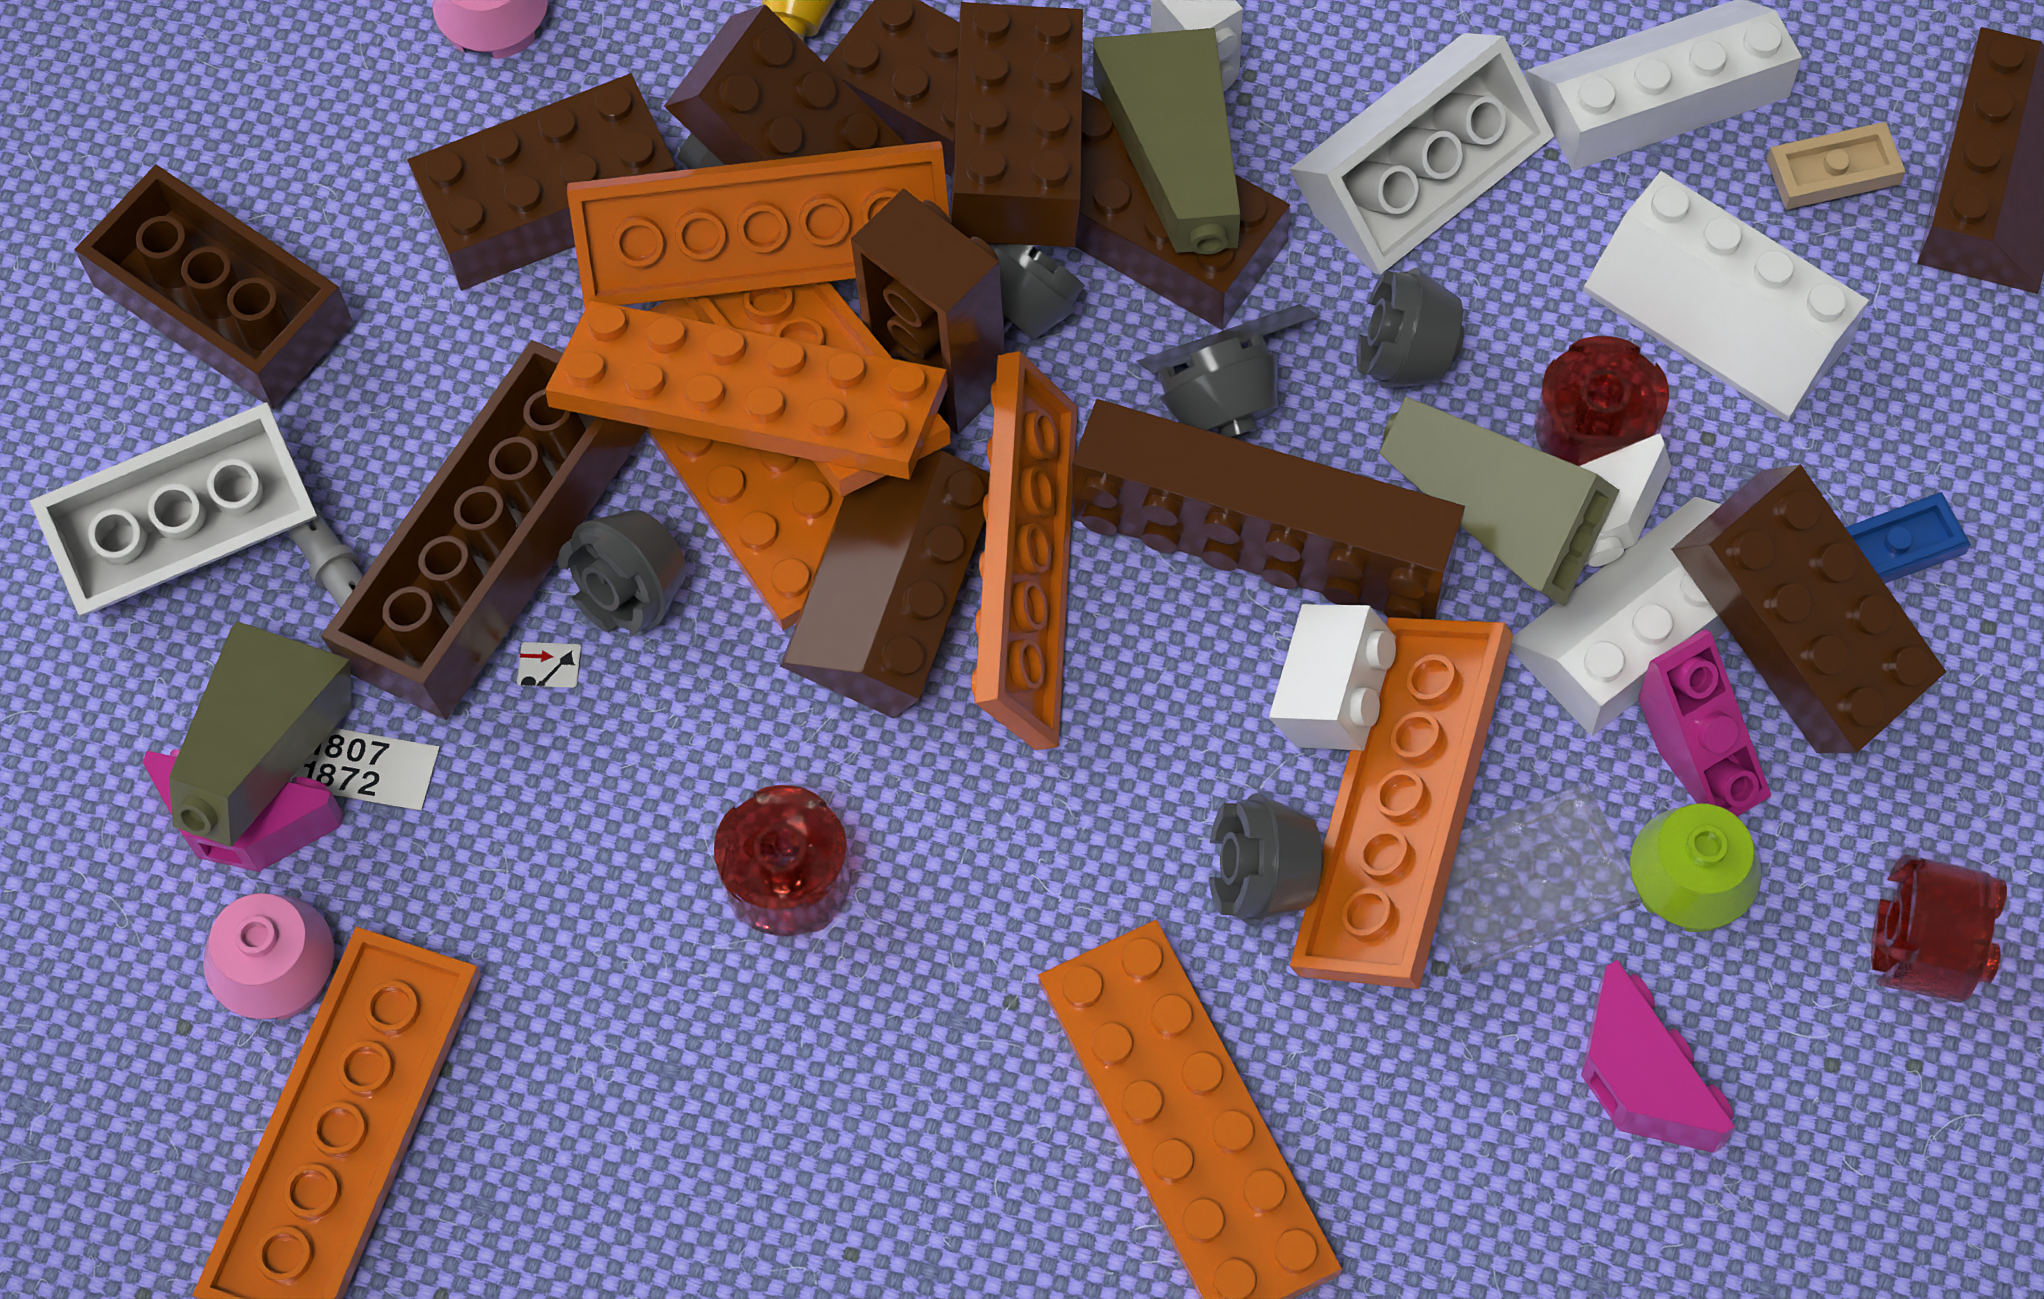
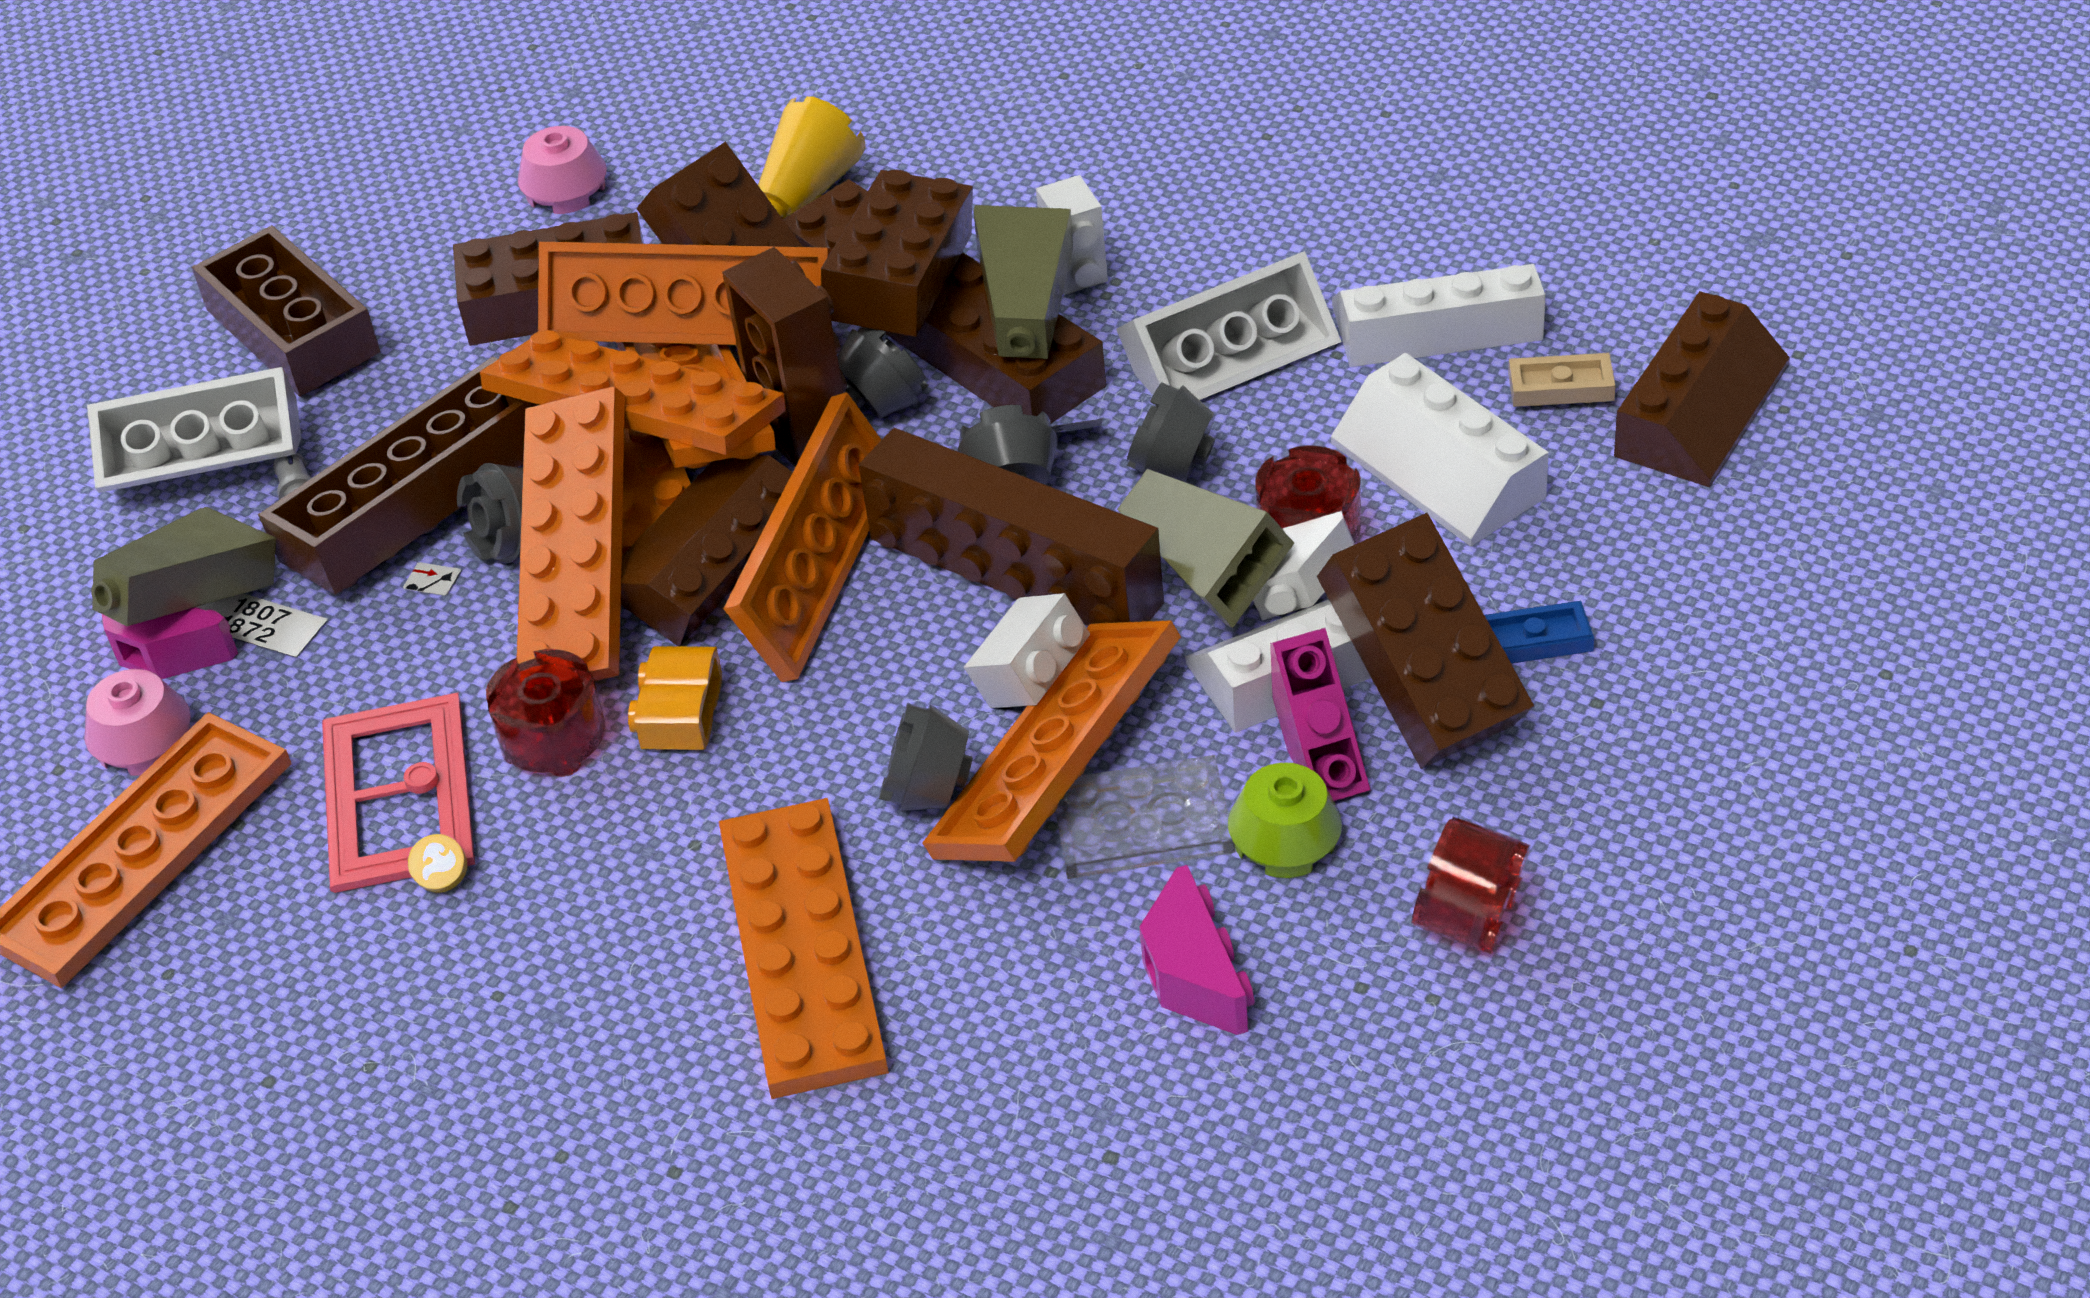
camera: 15 degrees right, 20 degrees down
(653, 971) = (449, 777): none -> coral door
(721, 1093) = (437, 863): none -> yellow tile
(739, 611) = (573, 530): none -> orange plate
(929, 806) = (676, 697): none -> light orange brick

